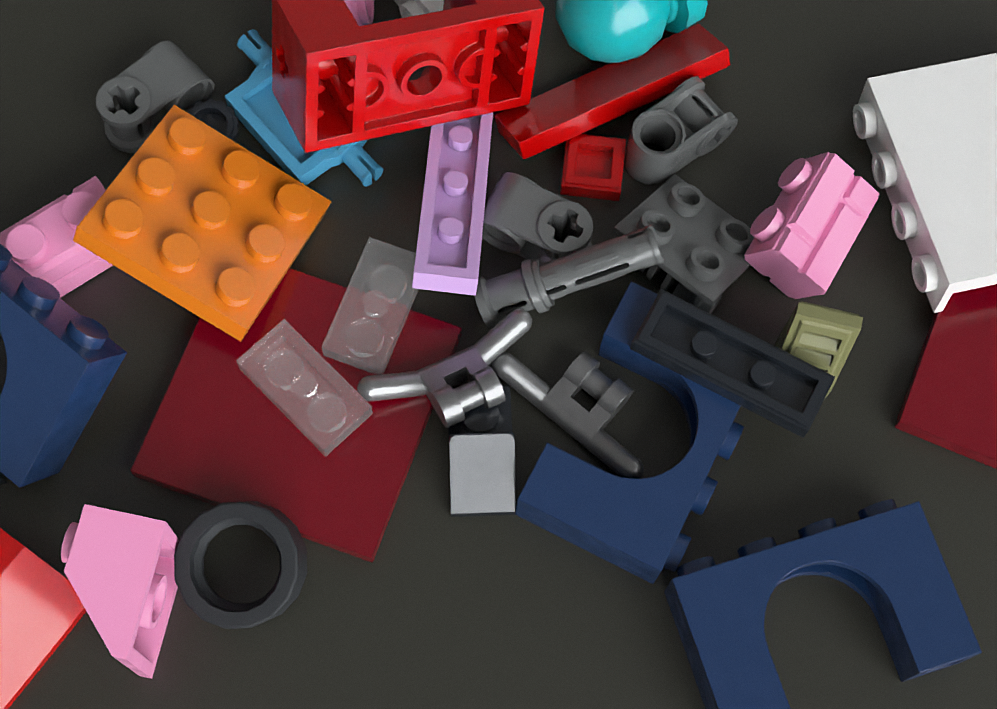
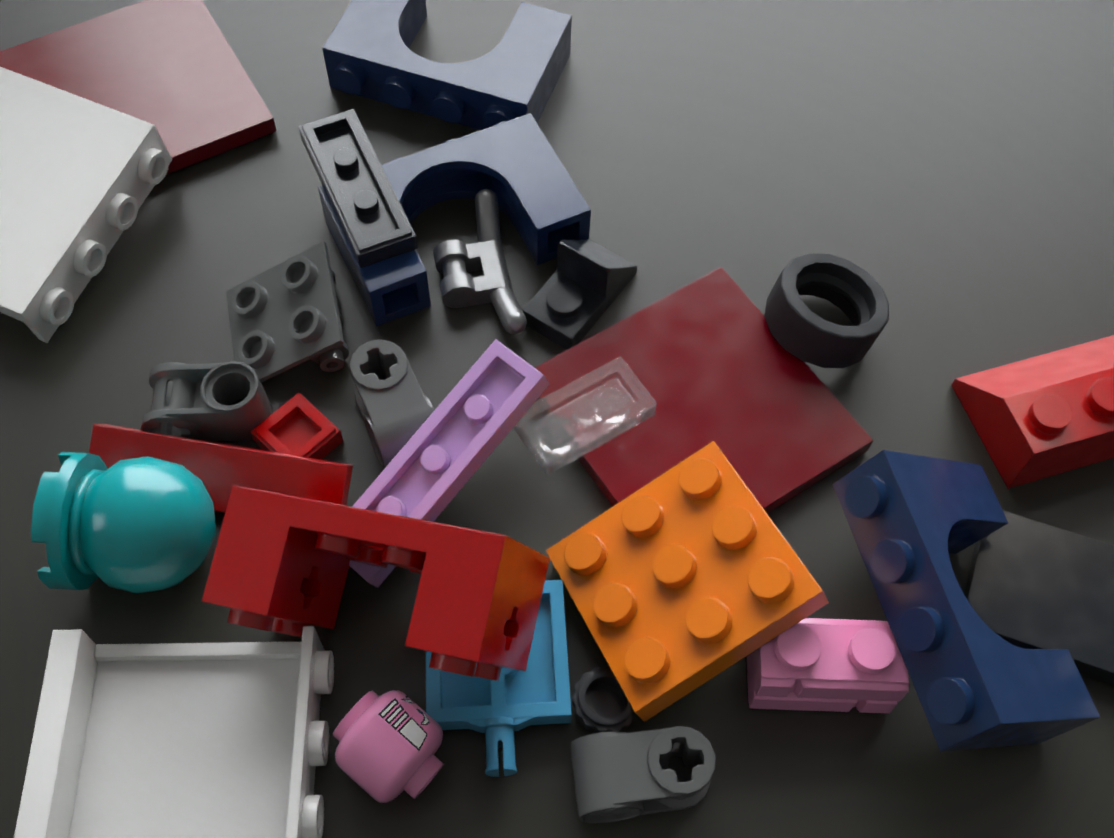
camera: 140 degrees left, 10 degrees down
(124, 580) = (929, 334): bright pink slope -> none
(305, 387) = (690, 391): clear plate -> none
(439, 377) = (557, 337): flat silver piece -> none
(539, 283) = (438, 350): dark grey pin -> none
(810, 225) = (188, 256): bright pink brick -> none
(820, 336) = (284, 173): olive slope -> none

